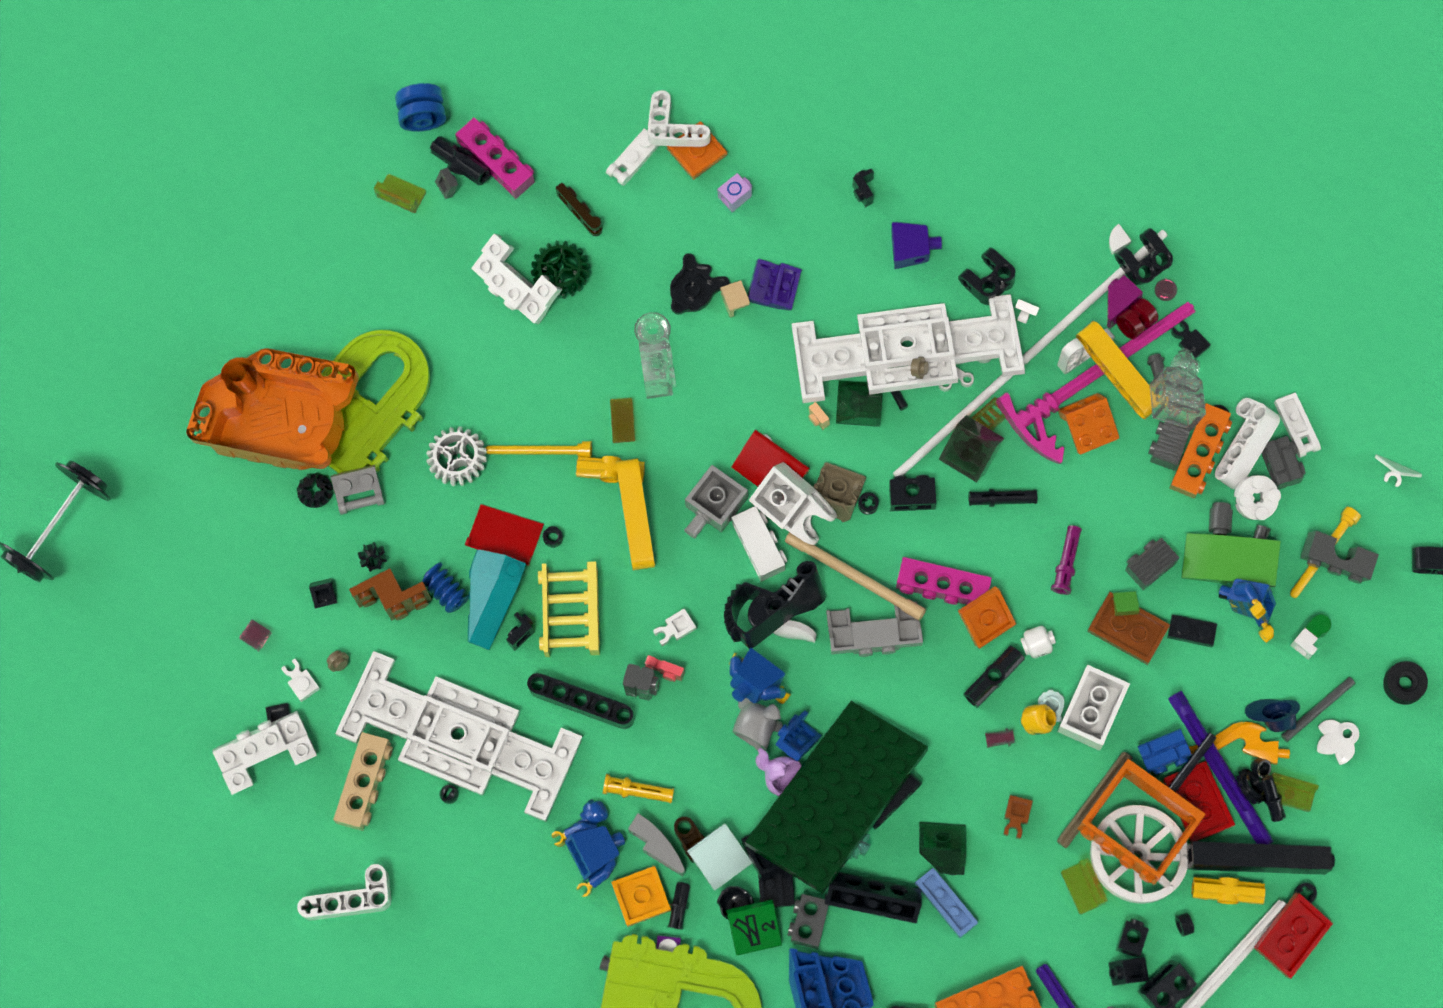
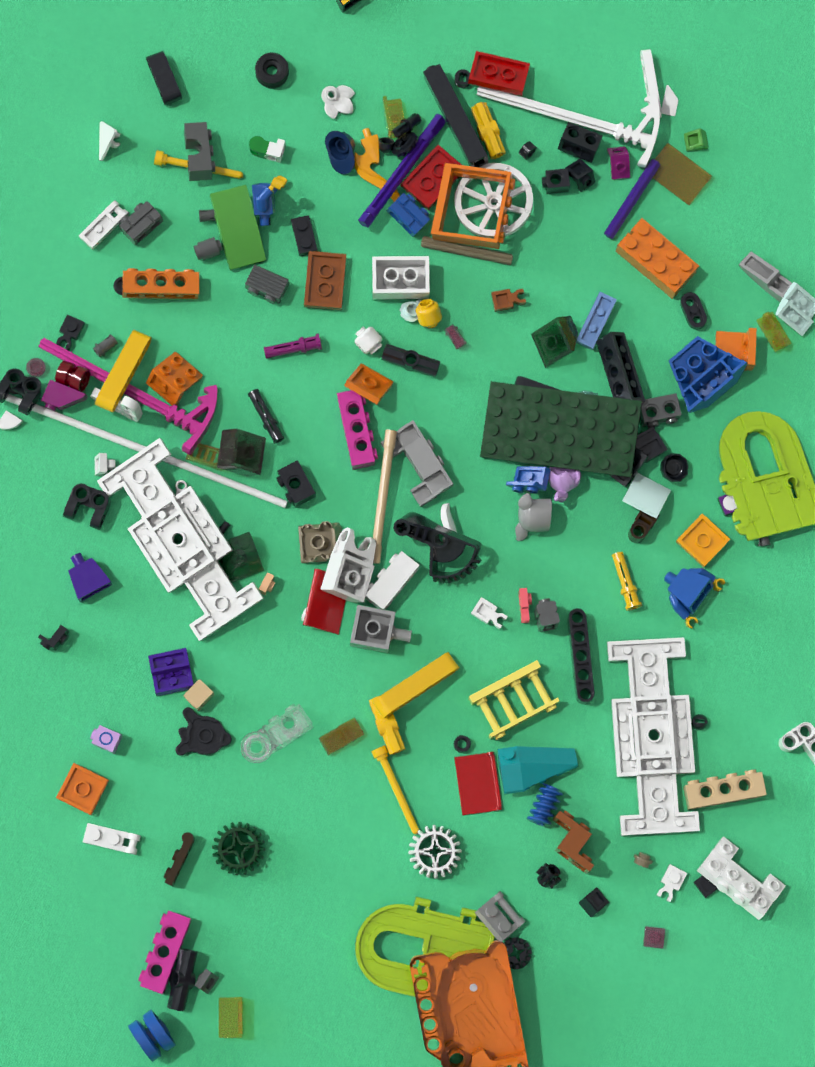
camera: 125 degrees left, 5 degrees up
(511, 285) = (271, 879): white bracket -> none
(518, 636) = (553, 729): black bracket -> none
(593, 812) = (661, 606): blue piece -> none
(656, 844) = (660, 547): light grey slope -> none
(663, 126) = (76, 824): white beam -> none
(679, 905) = (695, 509): black axle -> none
(754, 927) = (685, 446): green tile -> none
(756, 678) = (502, 530): blue torso -> none
(872, 509) = (314, 518): black bush -> none
(919, 367) = (196, 517): dark tan plate -> none
(1084, 886) = (534, 230): clear yellow panel -> none
(1125, 603) = (309, 288): bright green slope -> none
(1169, 446) = (163, 310): dark grey brick -> none
(1179, 392) = (122, 316): clear brick -> none
(1192, 762) = (408, 189): black bar -> none
(1249, 442) = (122, 251): white beam -> none
(1268, 493) = (176, 220): white plate -> none
(1319, 708) = (316, 121): dark grey bar -> none

